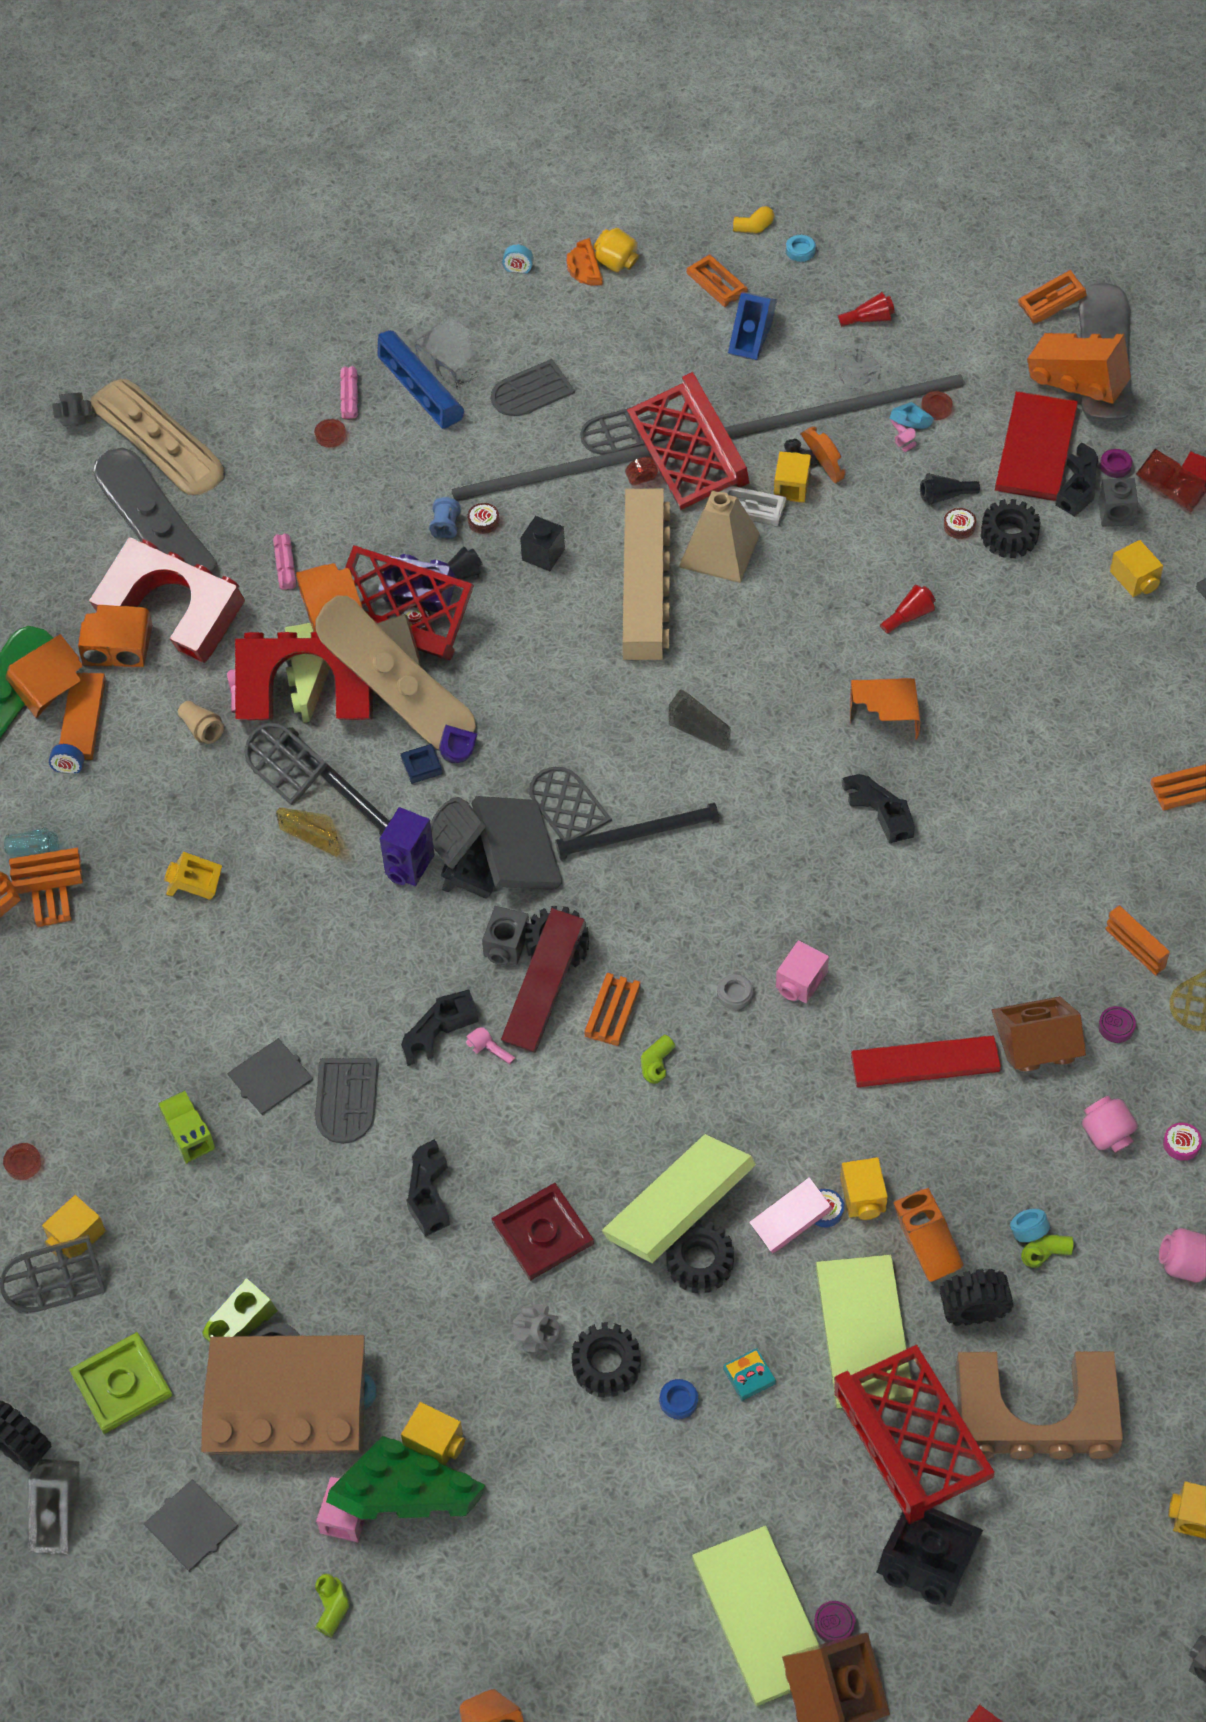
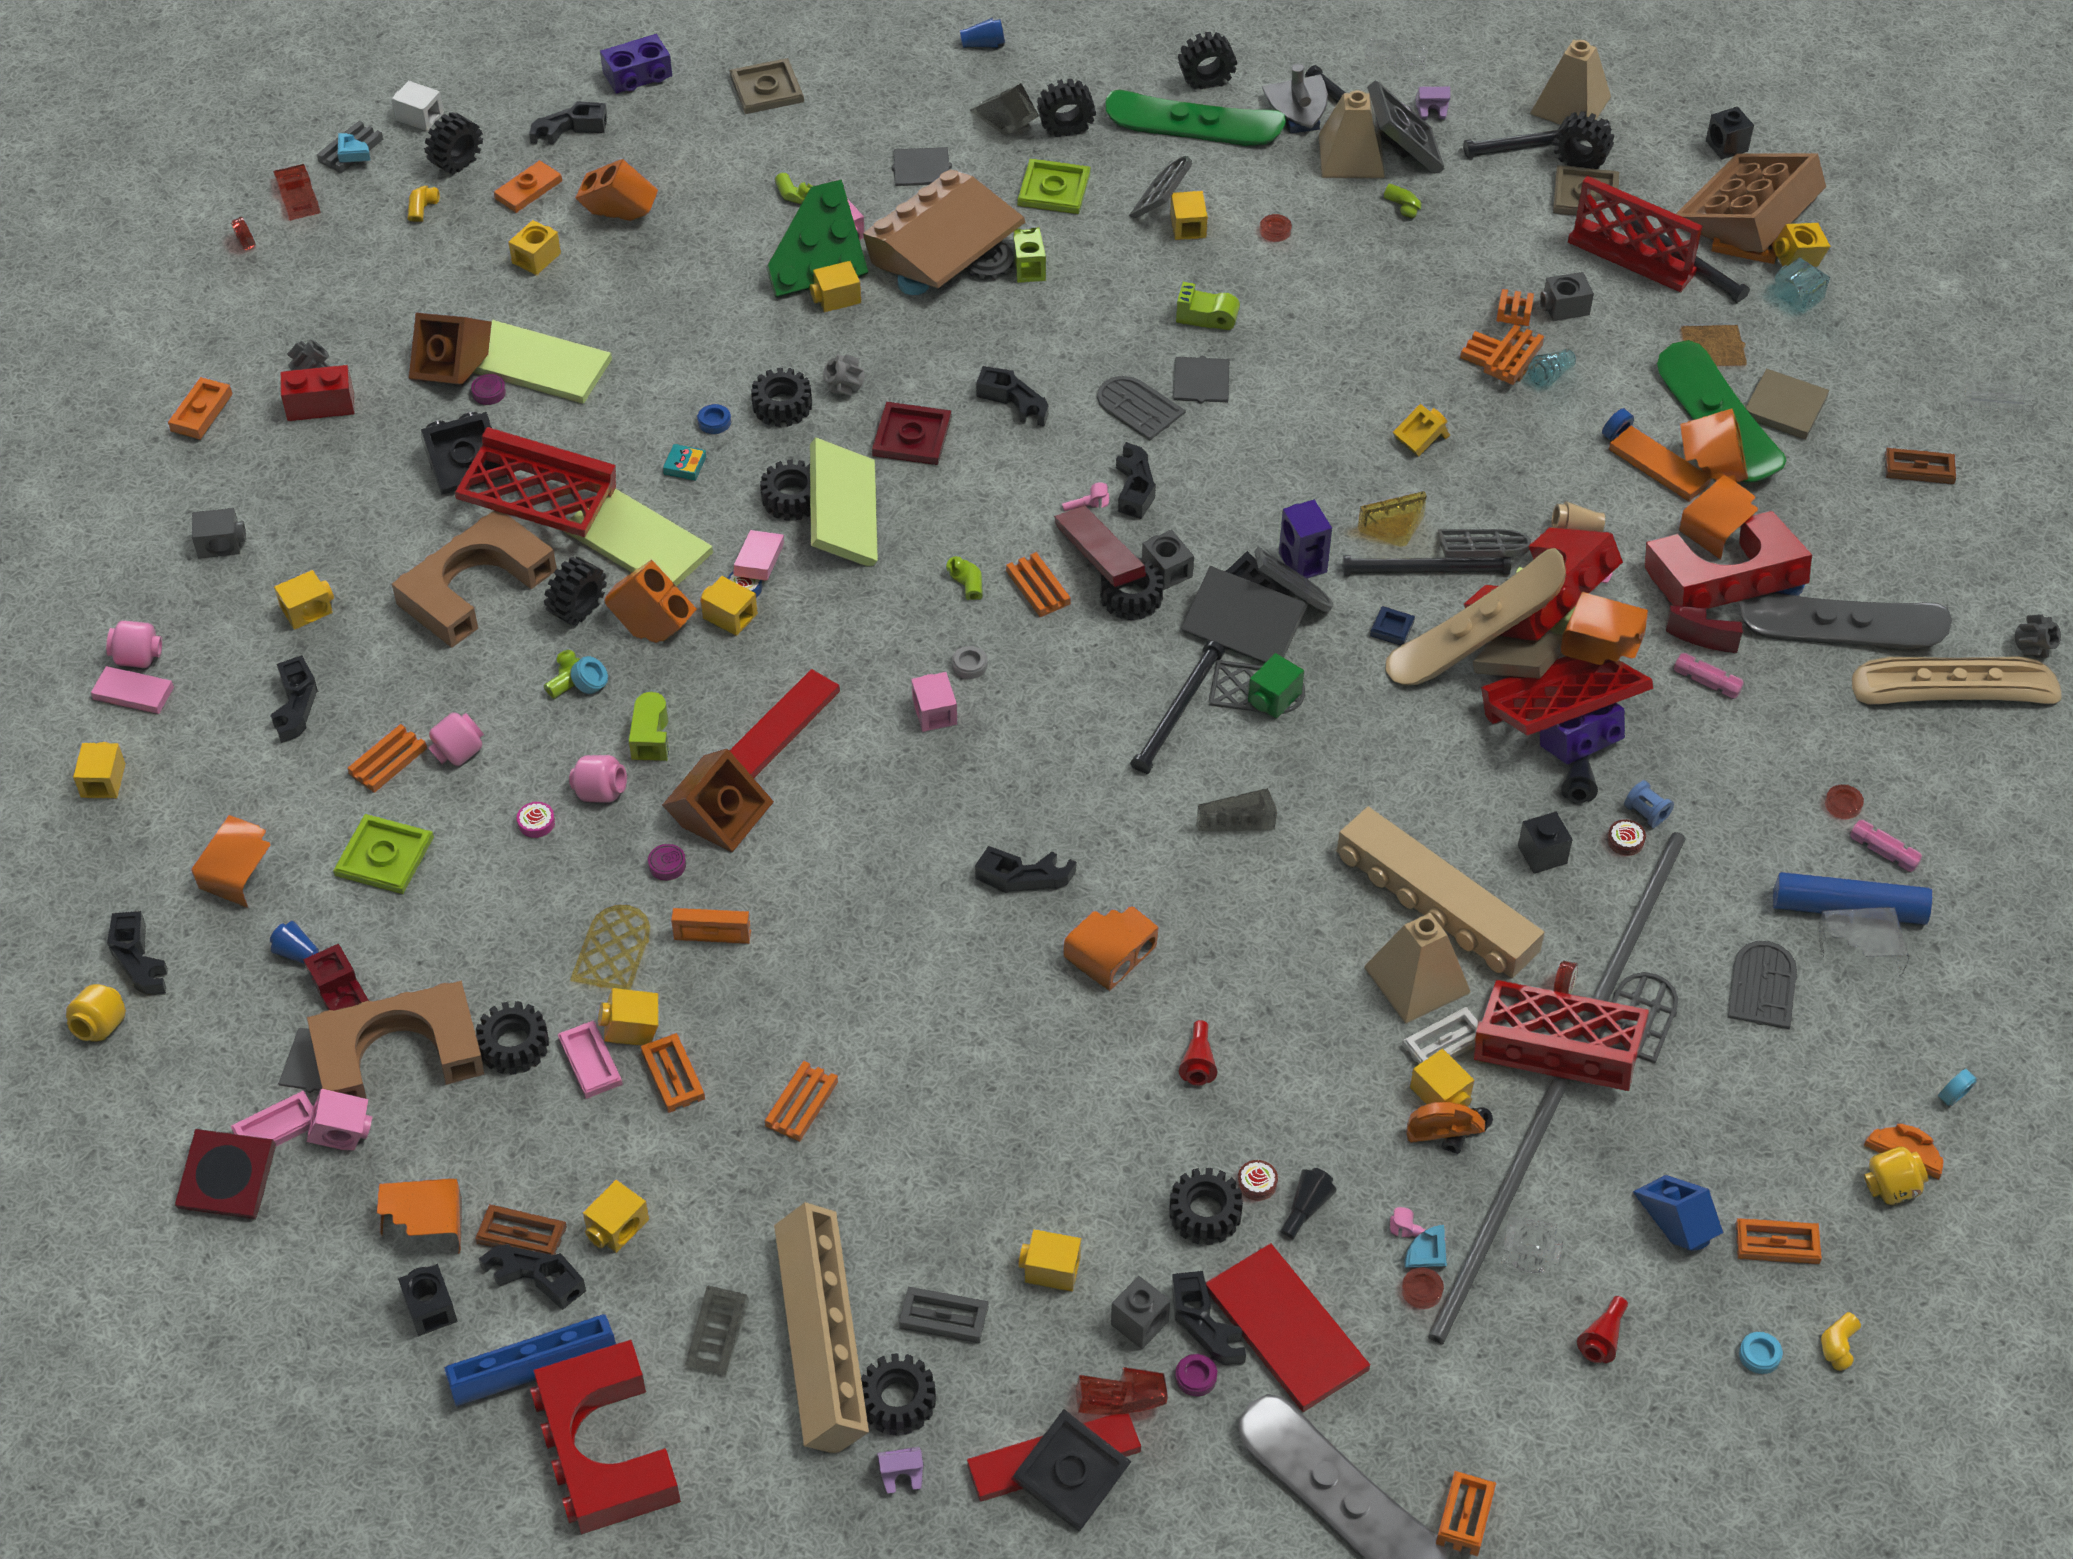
camera: 130 degrees right, 5 degrees down
(246, 579) = (1693, 627): none -> dark red slope
(456, 744) = (1386, 654): dark purple tile -> none
(565, 775) = (1275, 686): none -> green brick
(1026, 1141) = (646, 733): none -> lime leg
(1081, 365) = (1333, 1420): orange wedge -> none

